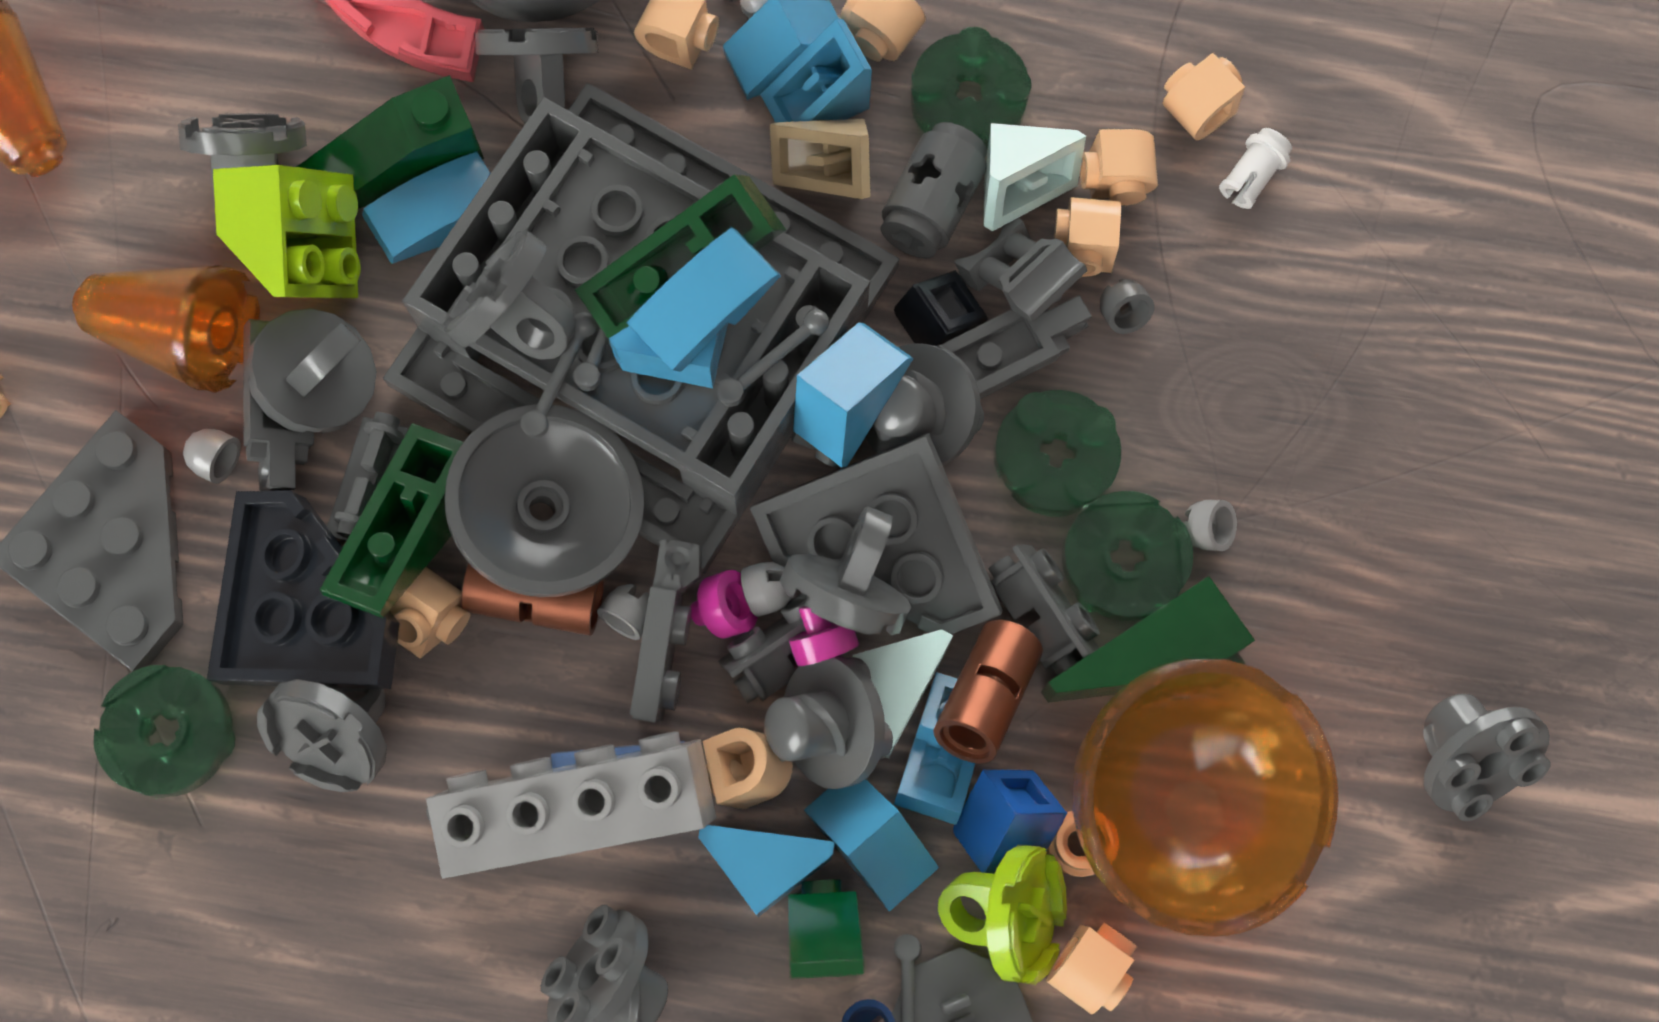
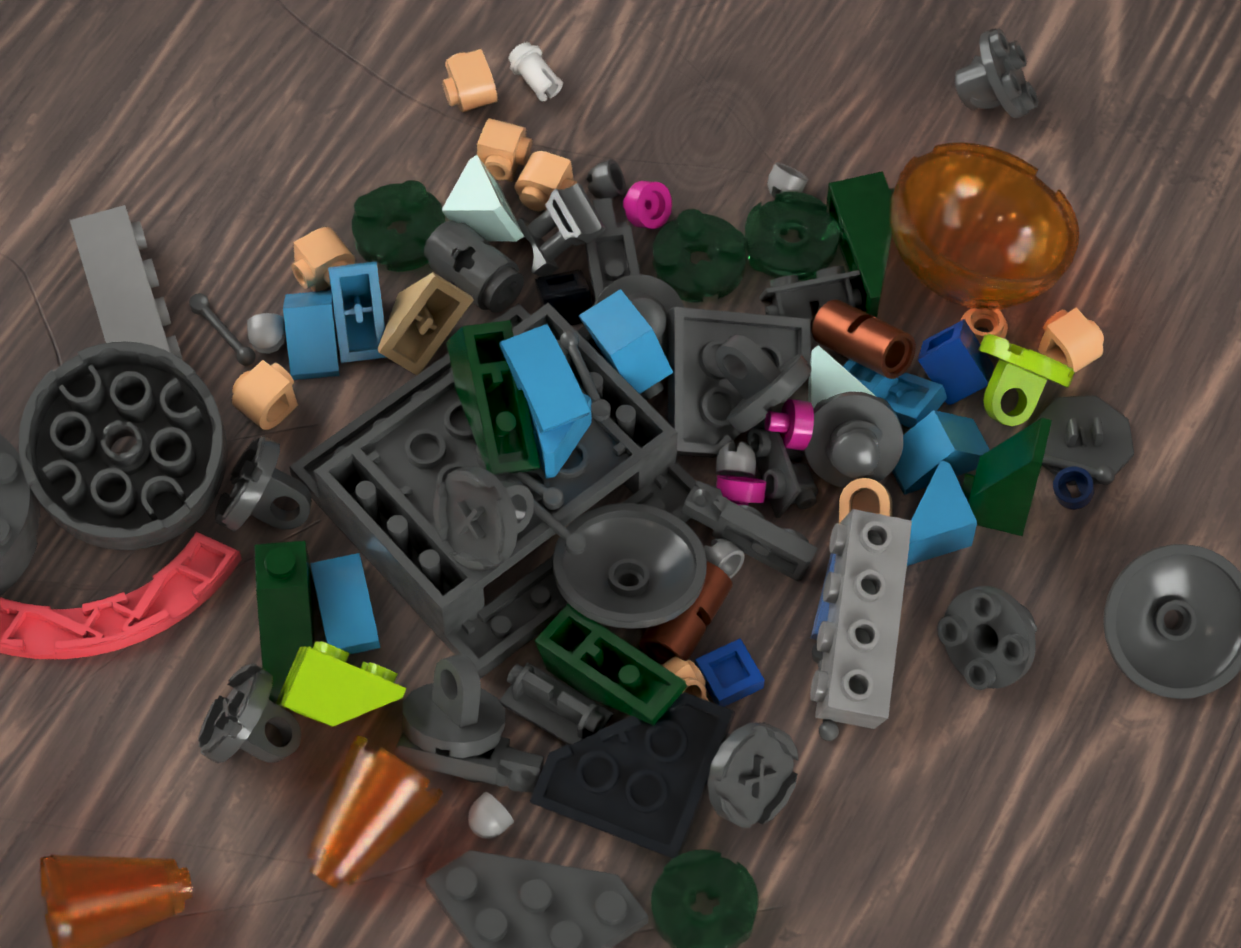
camera: 70 degrees left, 15 degrees down
(471, 668) = (730, 673): none -> blue plate
(1103, 365) = (648, 204): none -> dark pink tile

